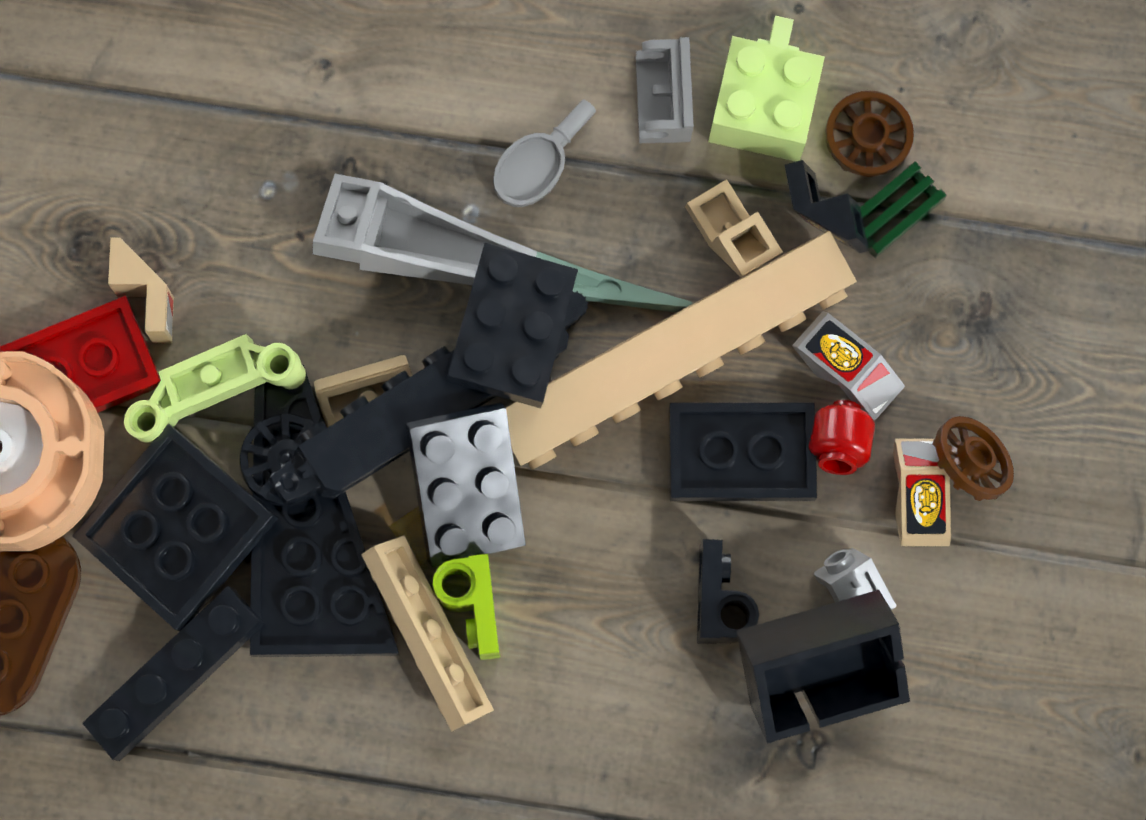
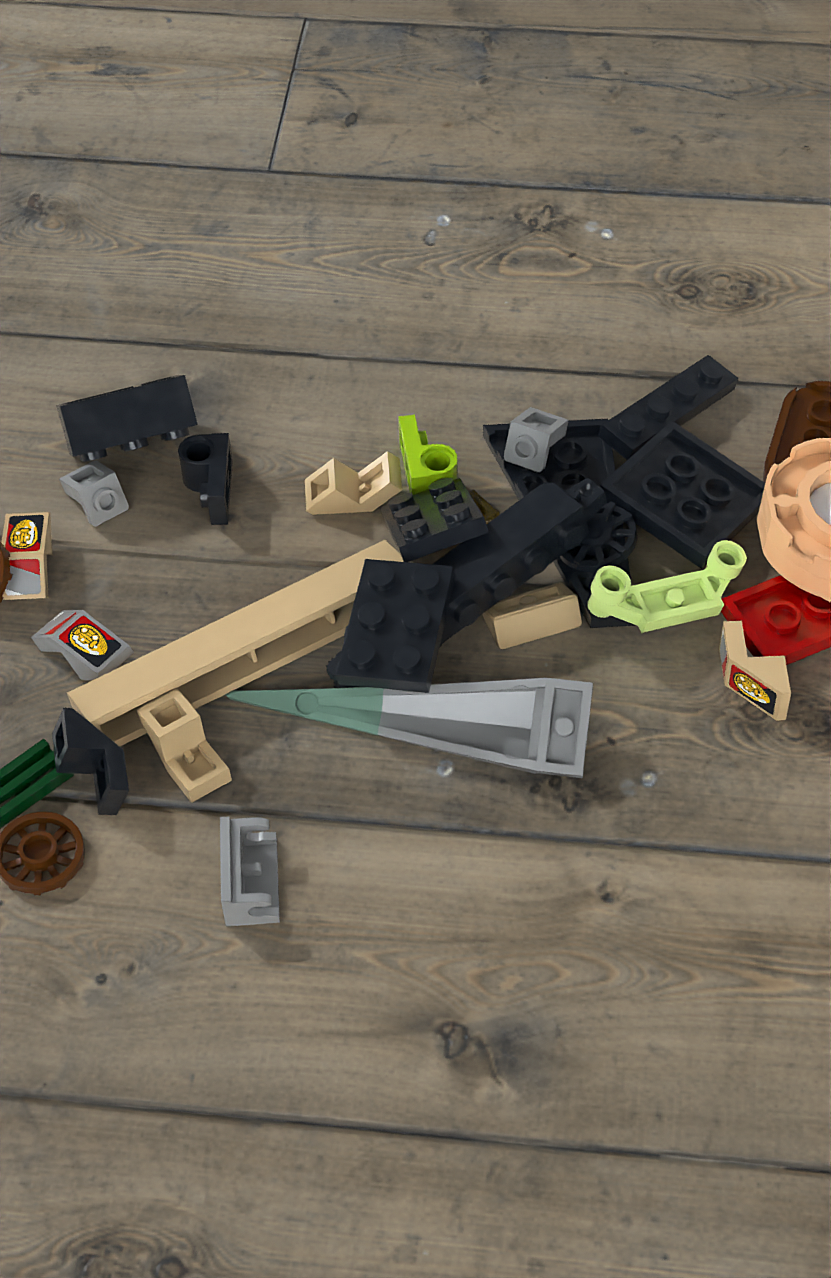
camera: 175 degrees left, 25 degrees down
(338, 610) = (532, 436): none -> light grey bracket
(427, 632) = (450, 424): tan plate -> none
(537, 160) = (378, 804): light grey piece -> none
(555, 577) = (342, 490): none -> tan slope
(741, 452) = (184, 578): black plate -> none
(767, 95) = (142, 864): yellowish green hinge -> none
(842, 437) = (94, 587): red head -> none

